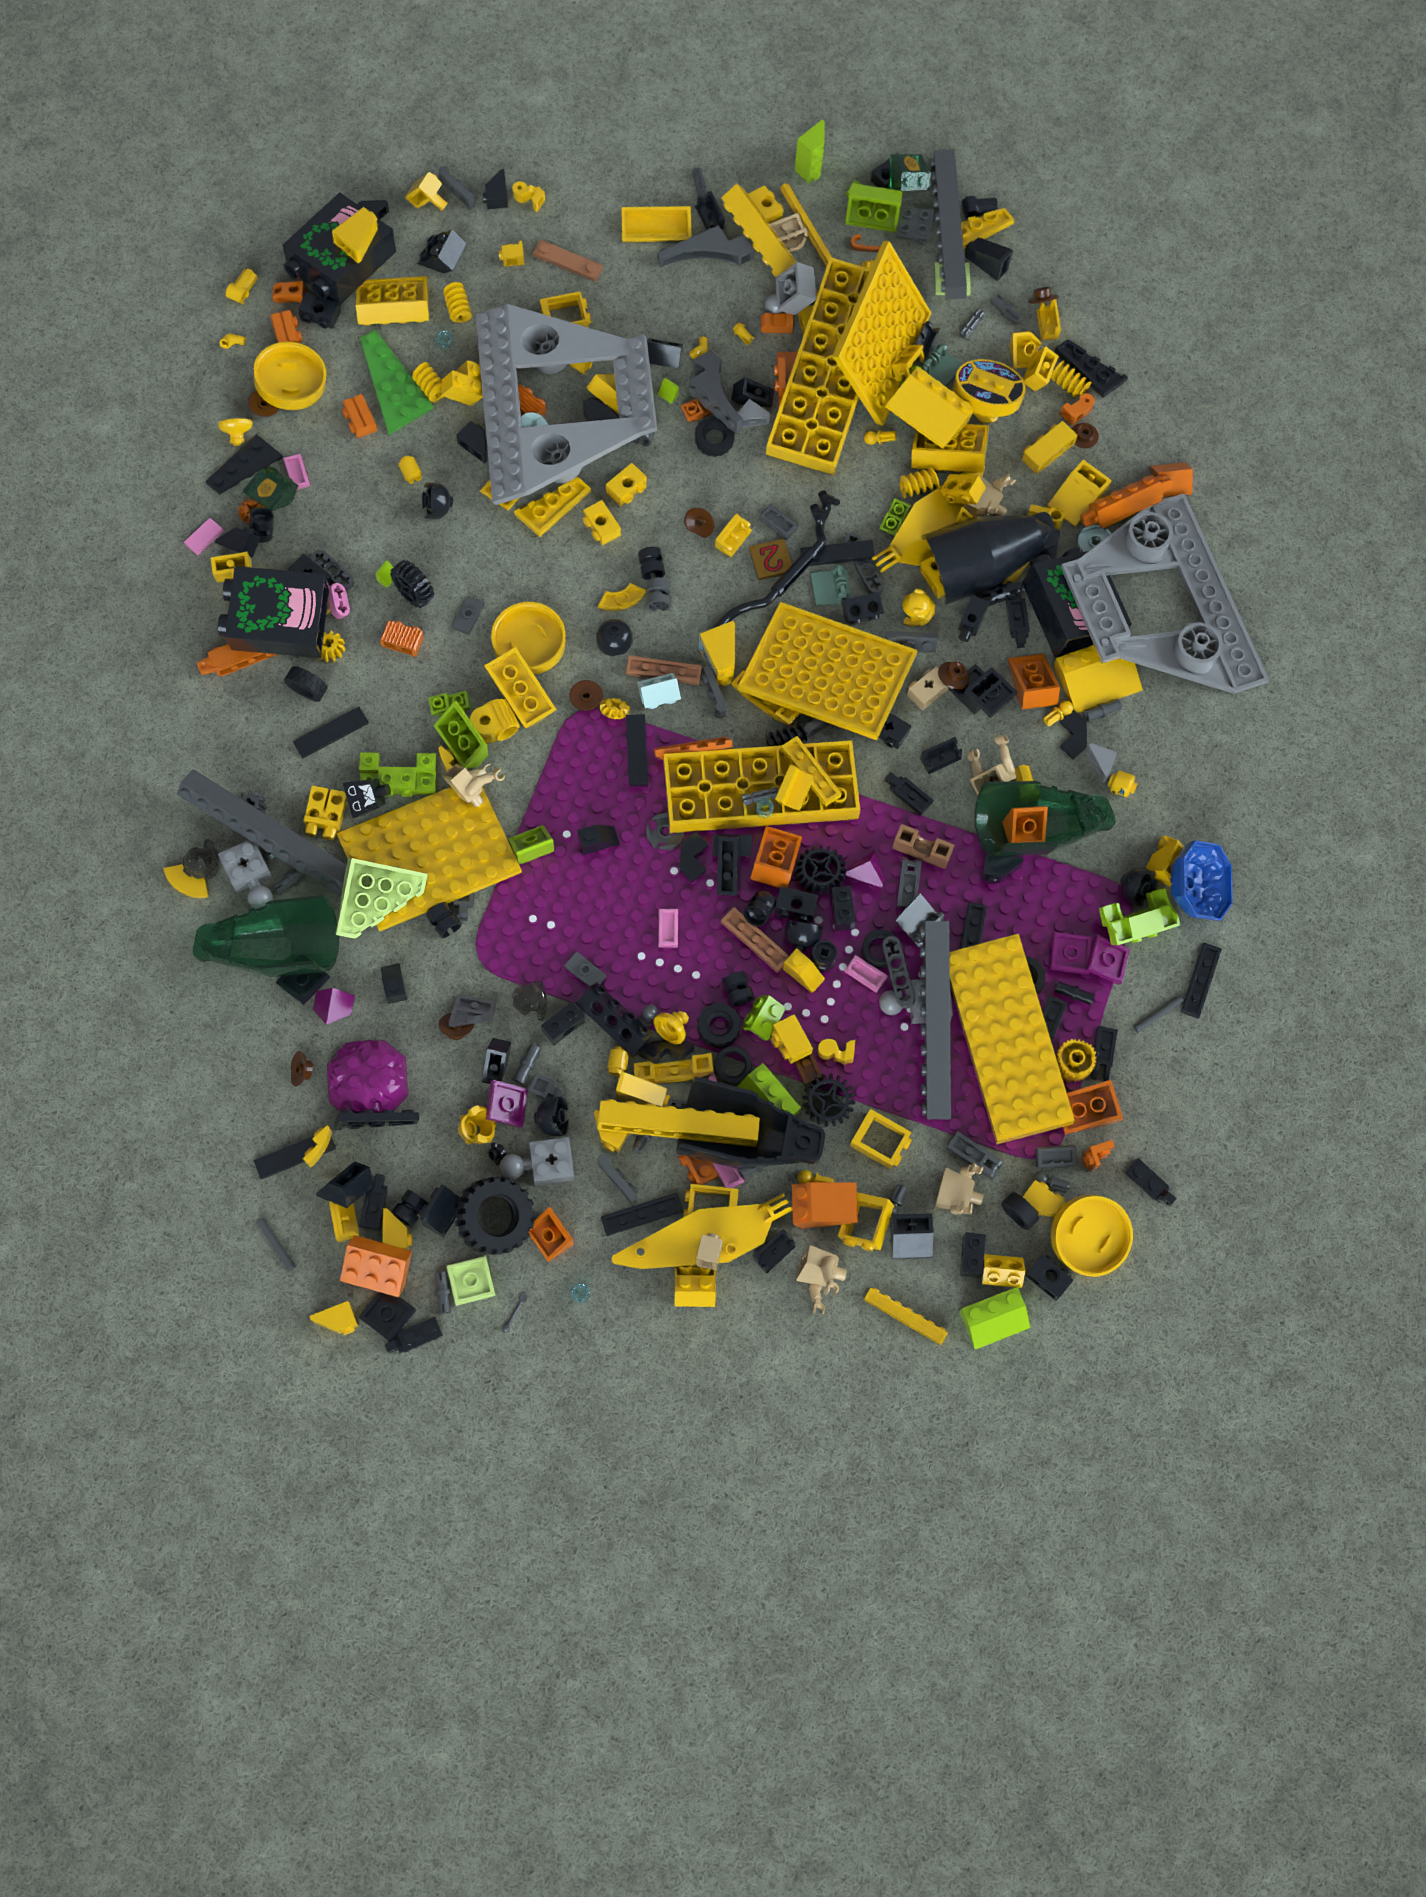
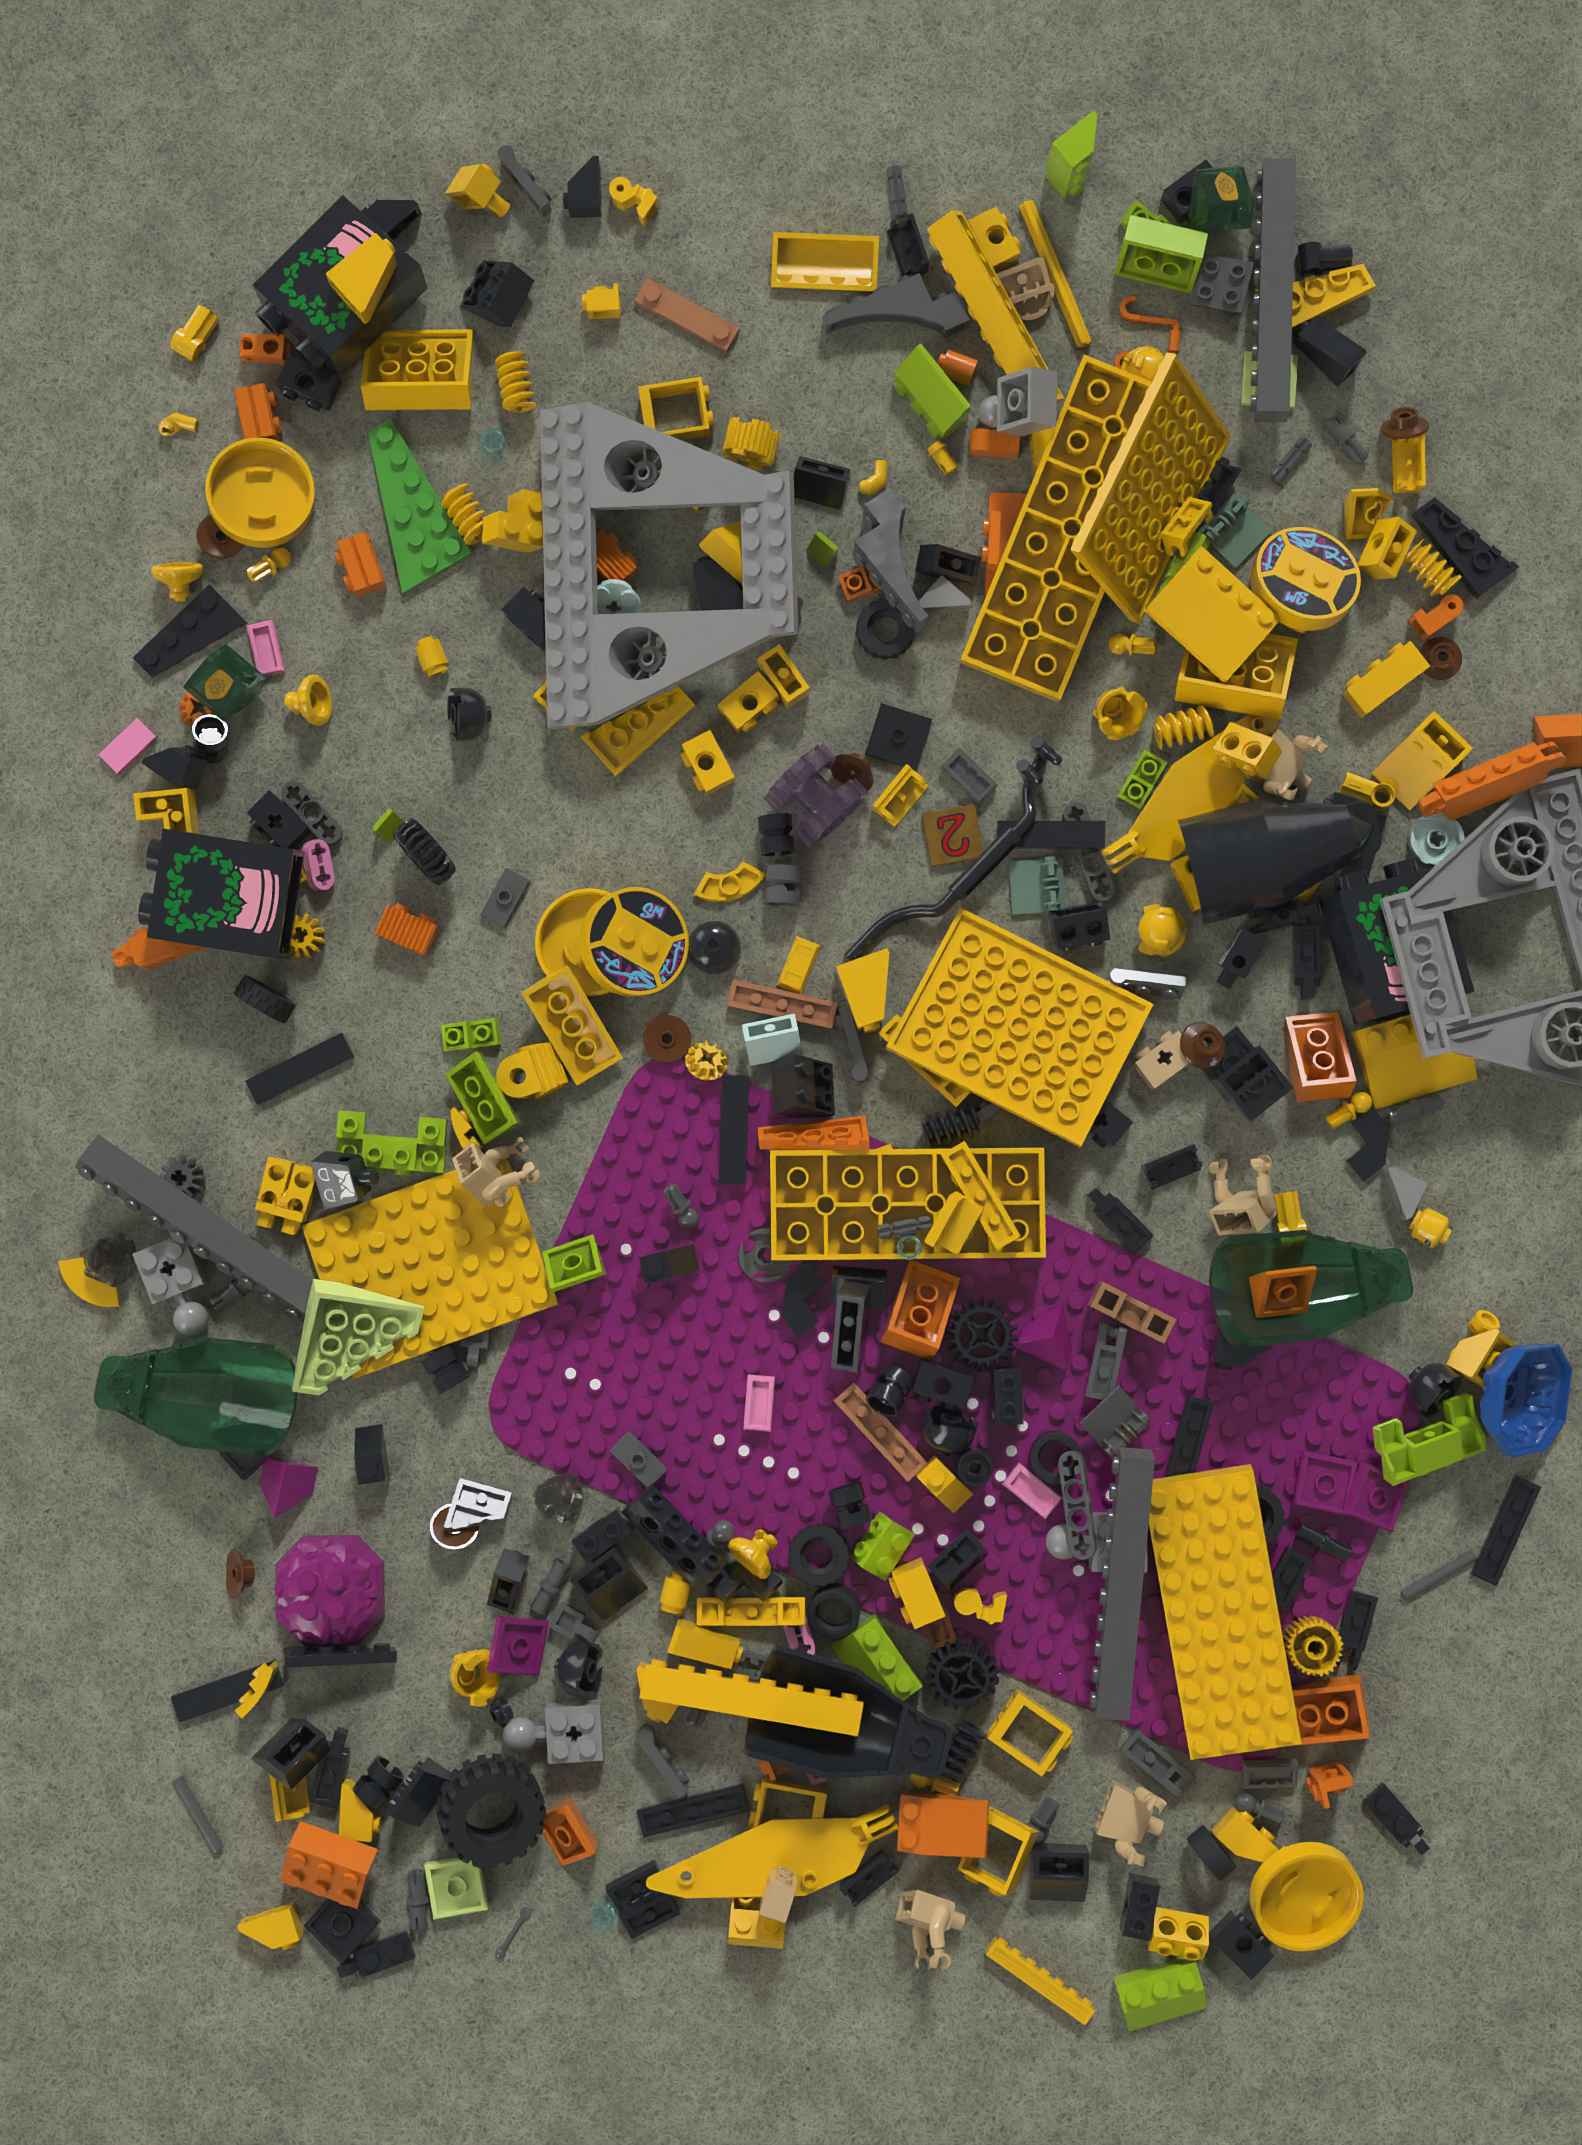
camera: 15 degrees right, 15 degrees up
(297, 420) = (279, 558): none -> yellow axle
(329, 498) = (311, 700): none -> yellow hair
(559, 632) = (634, 942): none -> brick
(569, 1056) = (608, 1582): none -> black slope
(608, 809) = (688, 1217): none -> dark grey axle
(613, 1289) = (649, 1909): none -> black slope
(617, 324) = (751, 443): none -> yellow brick
(650, 465) = (783, 676): none -> yellow brick
(669, 526) = (806, 785): none -> clear purple piece
(673, 645) = (798, 965): none -> yellow tile
(682, 719) = (802, 1087): none -> black slope
(728, 500) = (898, 736): none -> black plate
(733, 293) = (931, 393): none -> lime slope
(748, 280) = (958, 367): none -> orange brick
(819, 1018) = (958, 1559): none -> black brick
(831, 1152) = (961, 1748): none -> black piece
(877, 470) = (1117, 701): none -> yellow helmet

